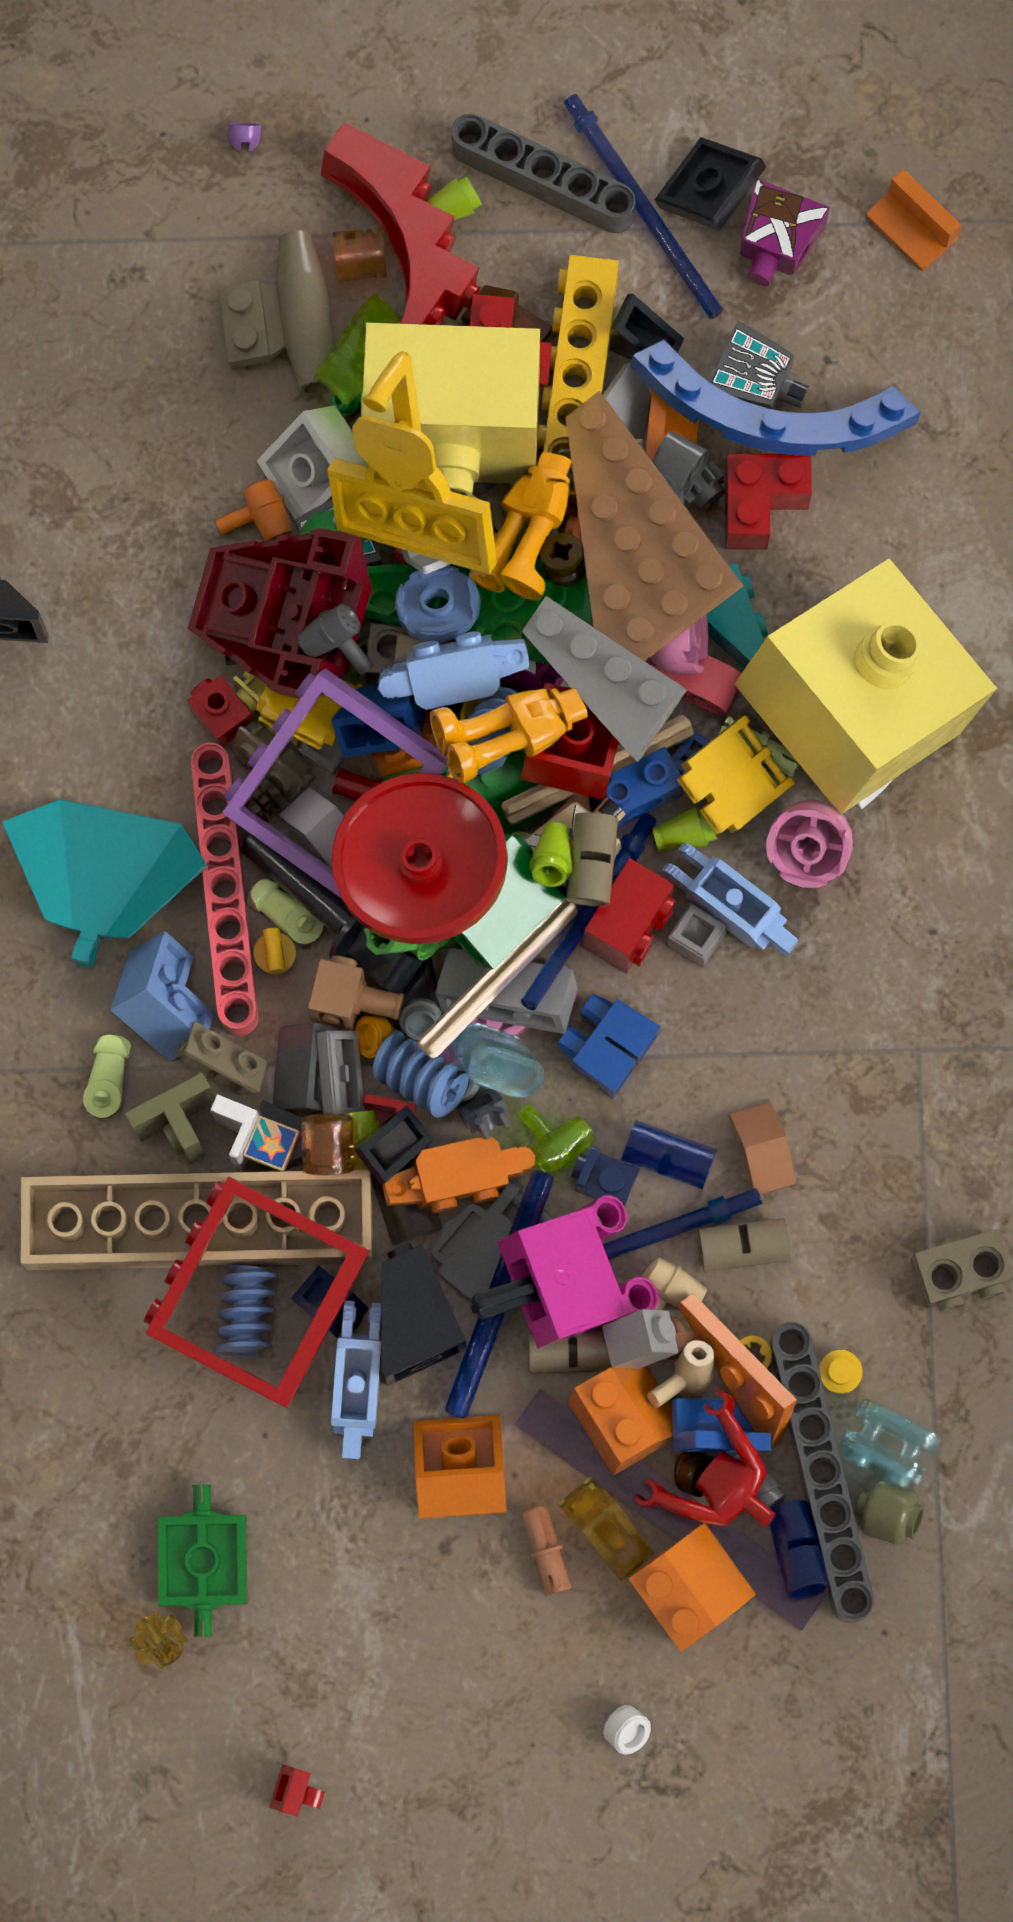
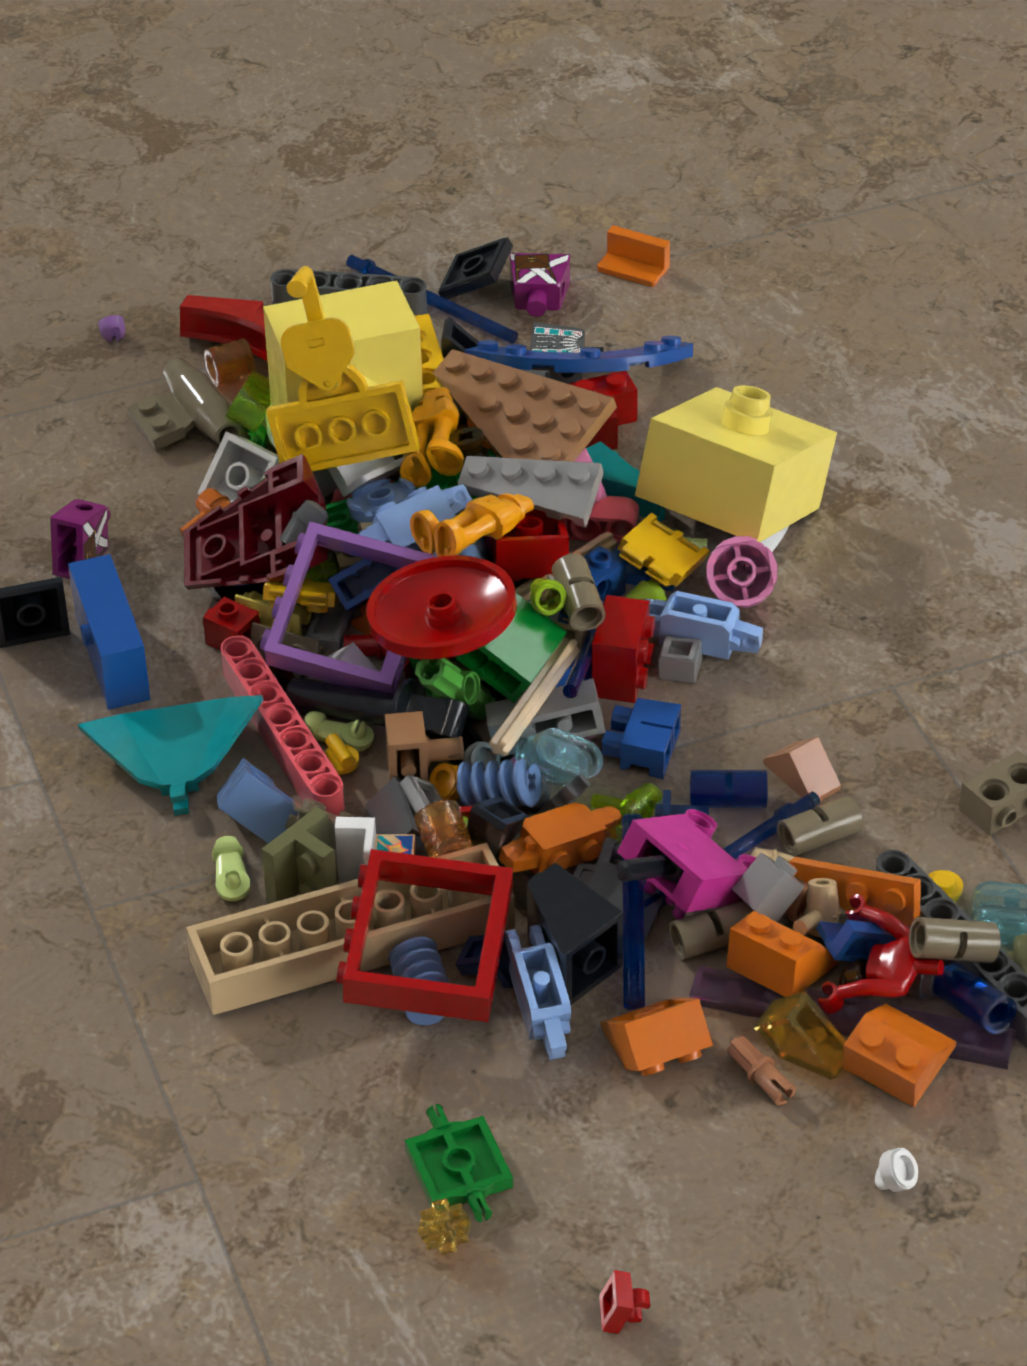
camera: 20 degrees left, 35 degrees down
(77, 685) = (109, 631): none -> blue brick
(95, 508) = (78, 534): none -> magenta torso
(794, 1497) = (954, 939): none -> dark tan pin

